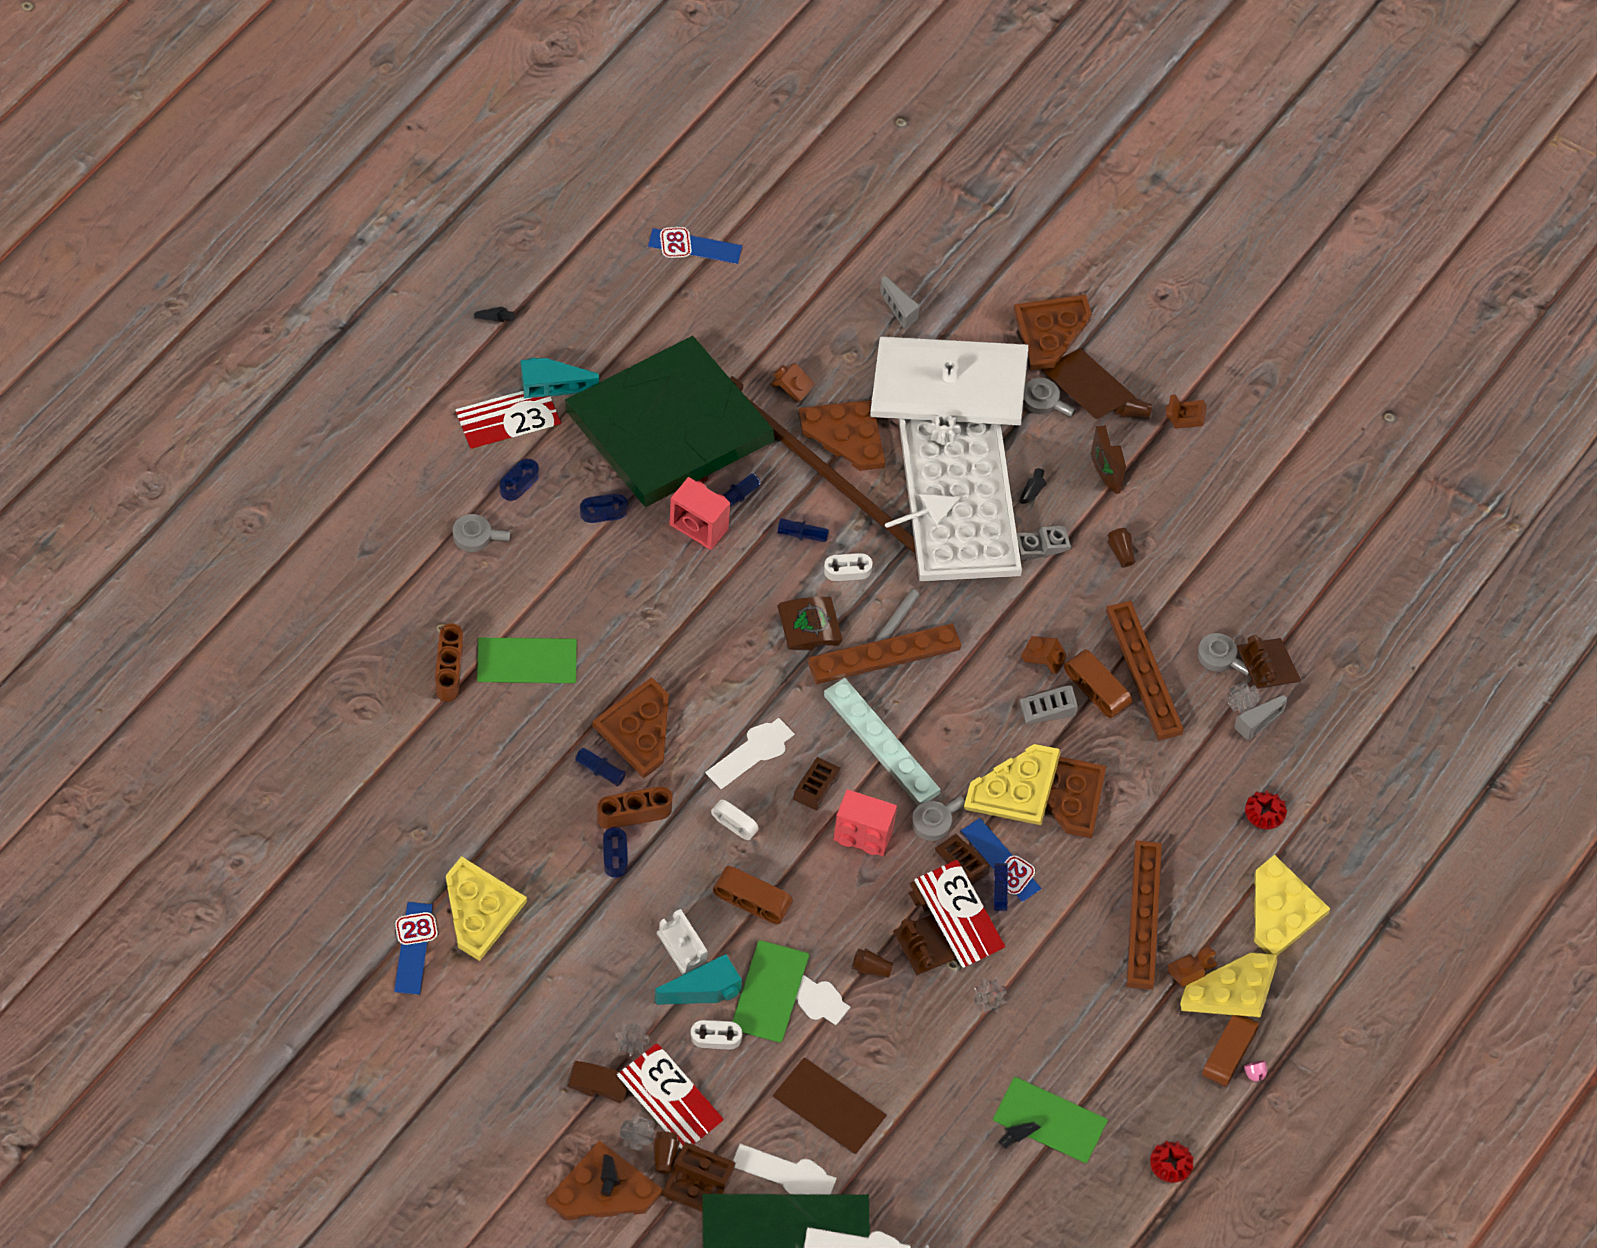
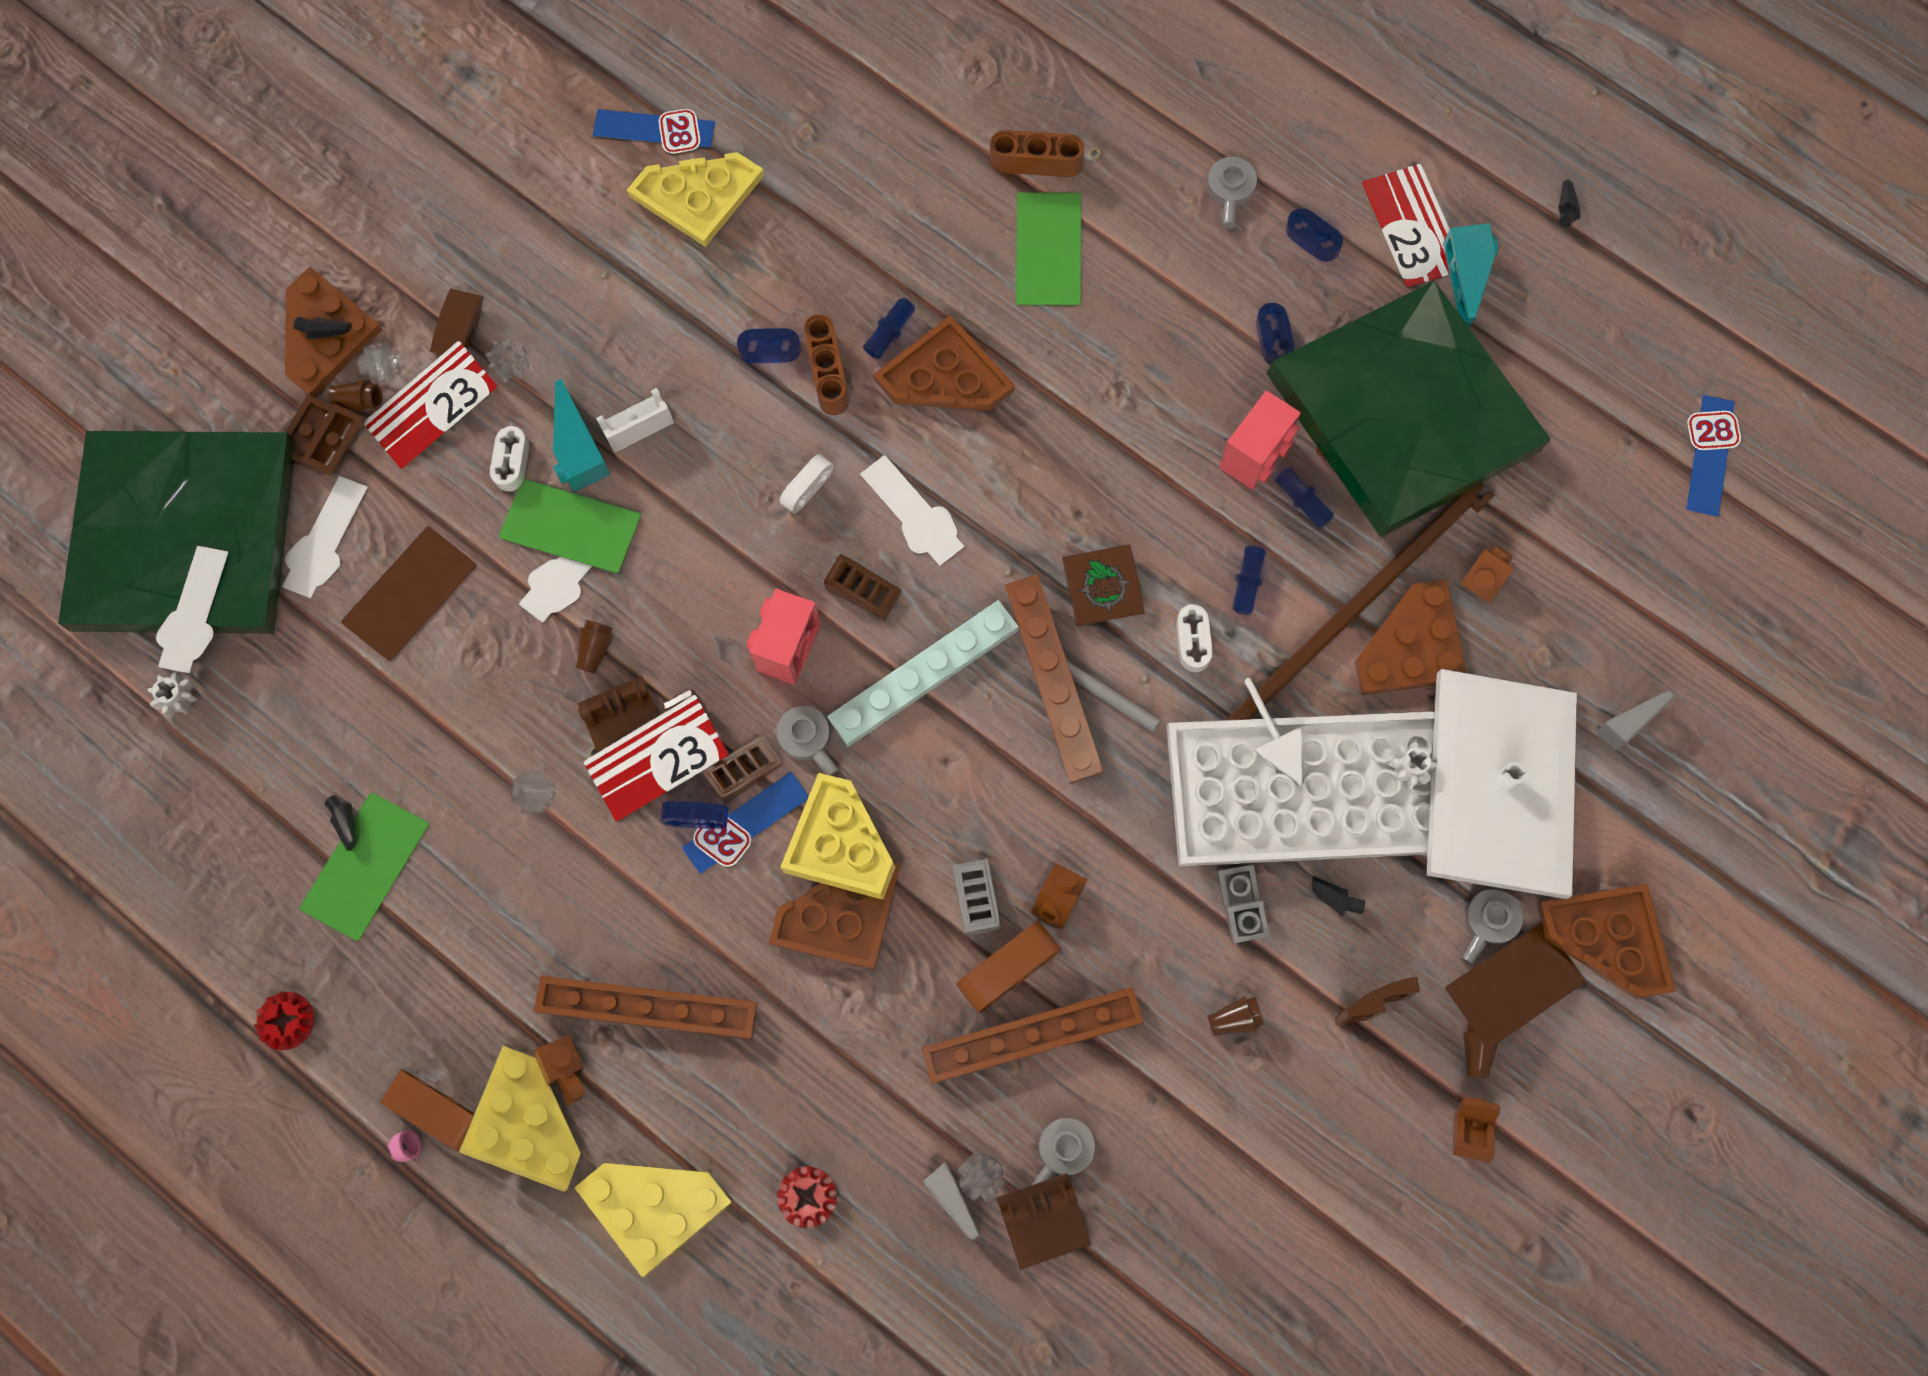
camera: 100 degrees right, 15 degrees up
(752, 895) = (697, 503): dark orange beam -> none

